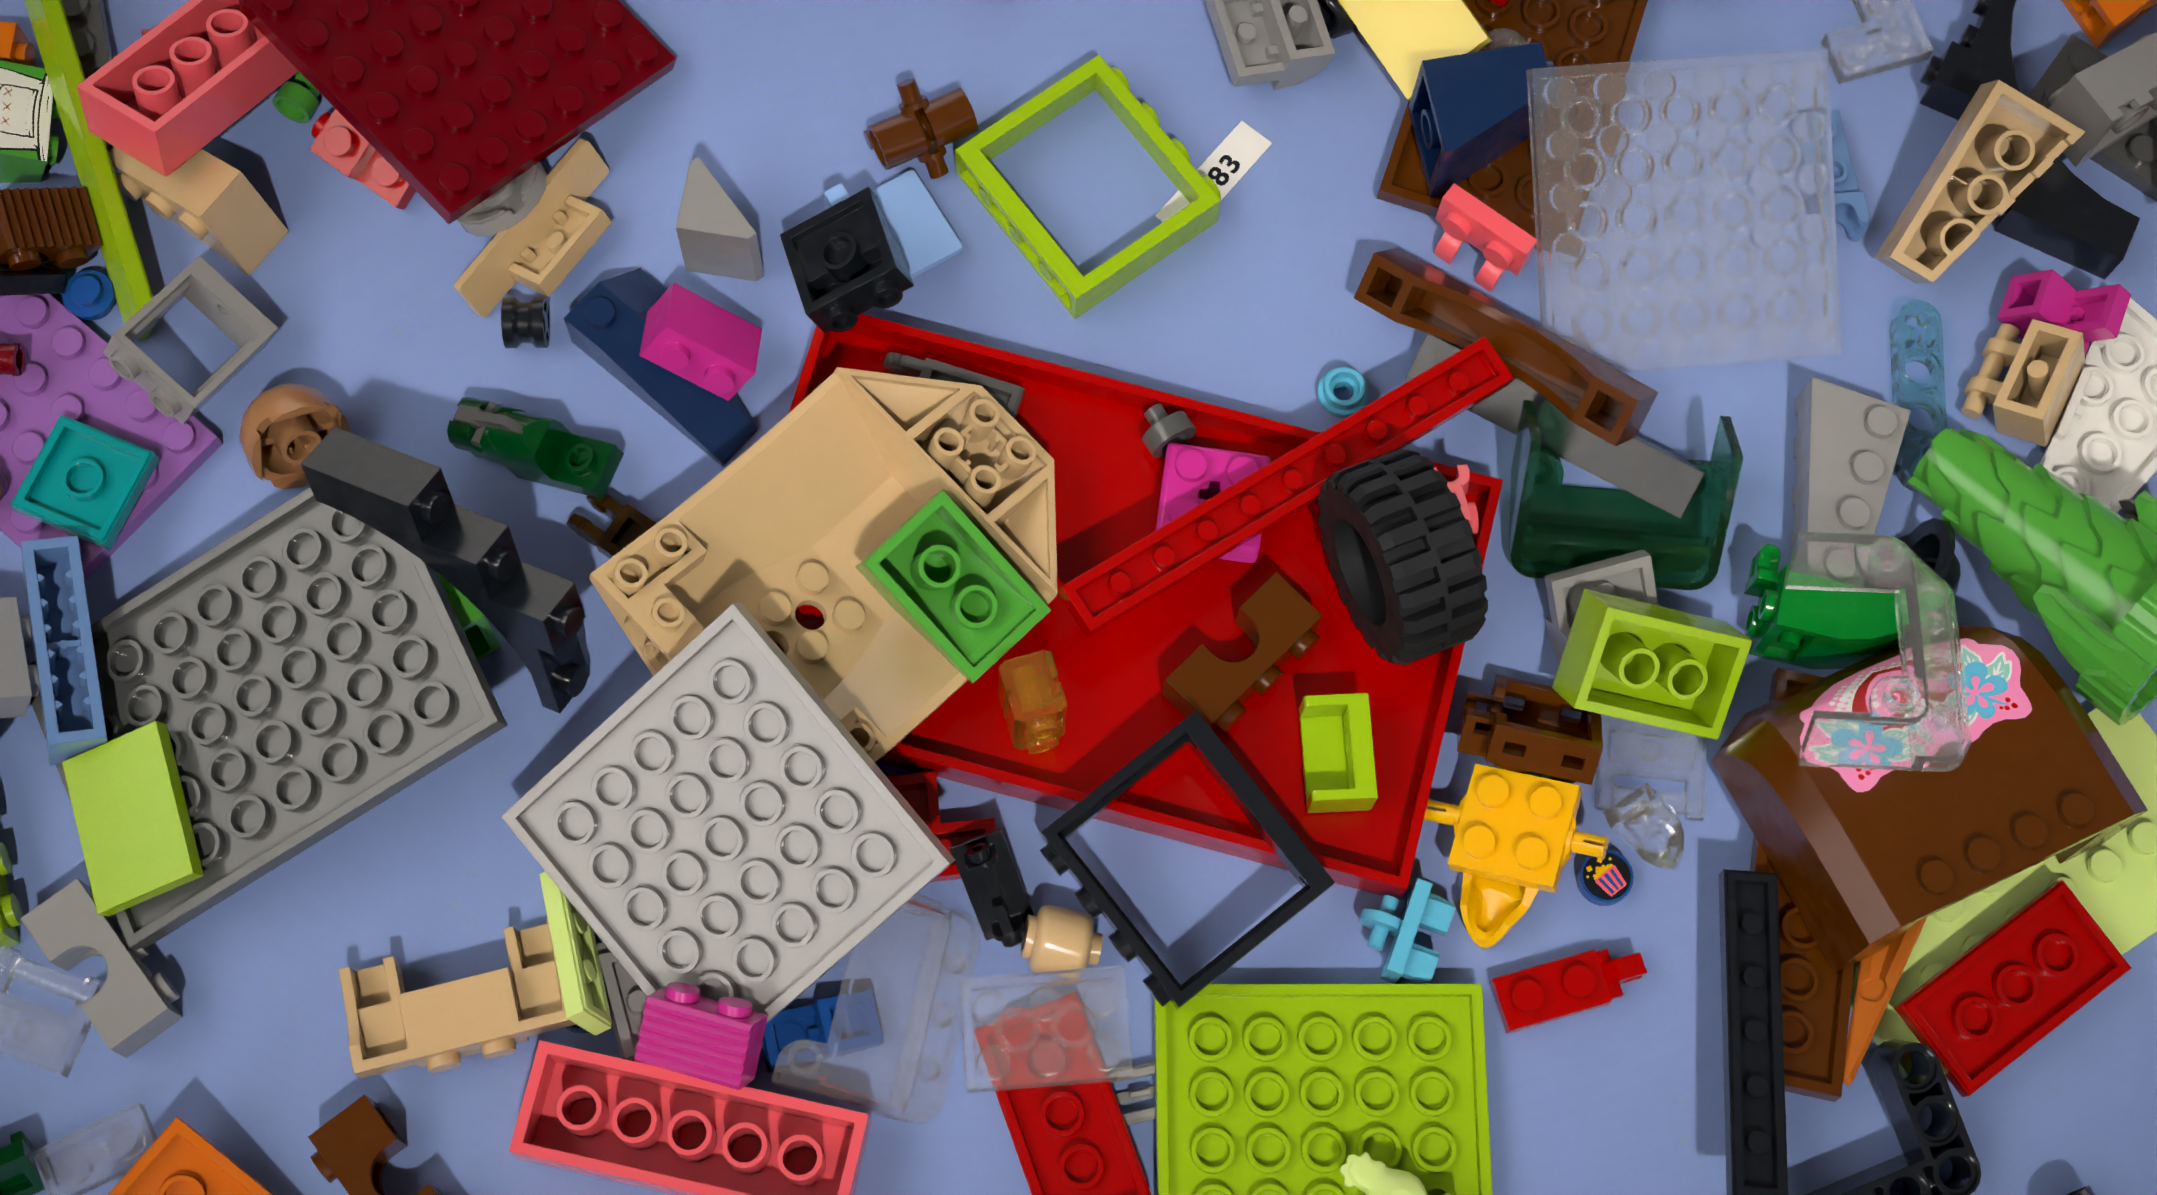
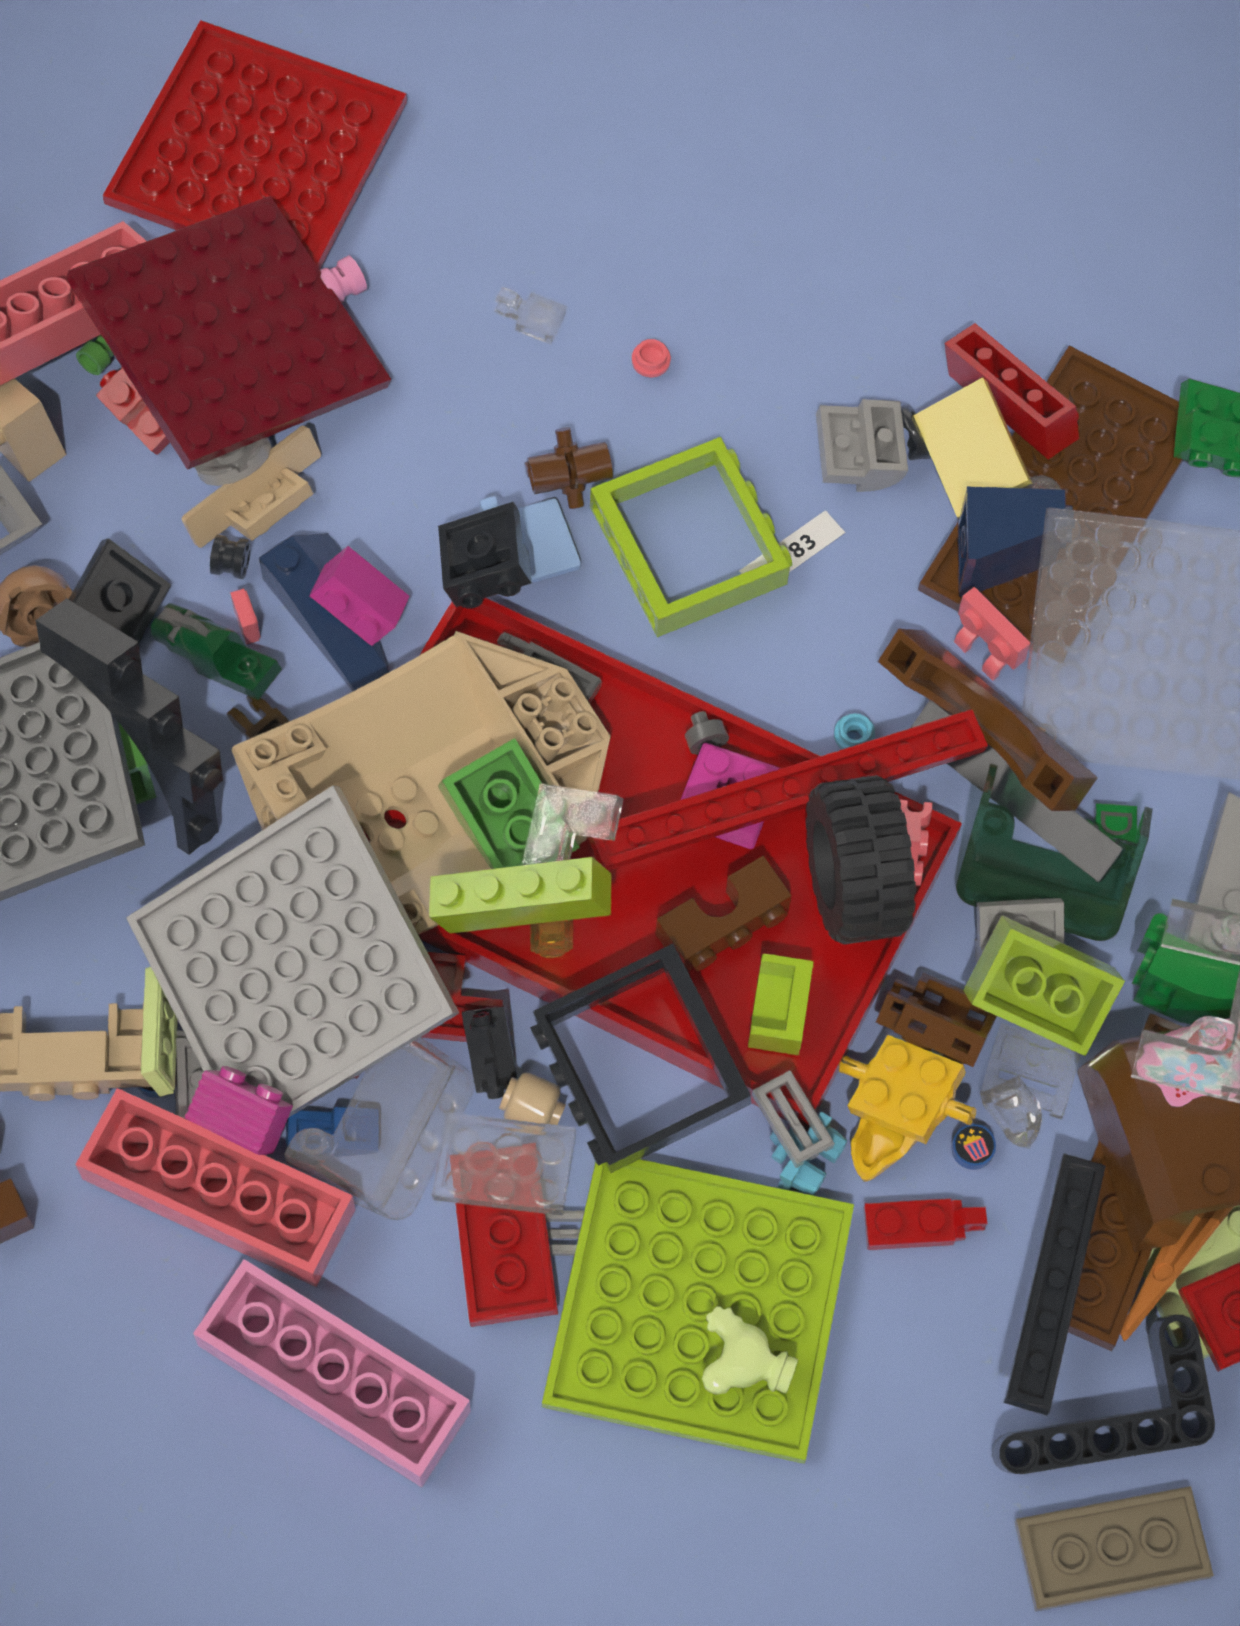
camera: 15 degrees right, 5 degrees down
(395, 397) = (120, 590): none -> black tile
(562, 394) = (245, 616): none -> coral tile
(714, 231) = (388, 514): light grey slope -> none
(998, 692) = (520, 895): none -> lime brick
(1021, 578) = (565, 813): none -> clear plate
(1372, 910) = (810, 1150): none -> light grey tile
(1681, 436) = (1117, 820): none -> green tile

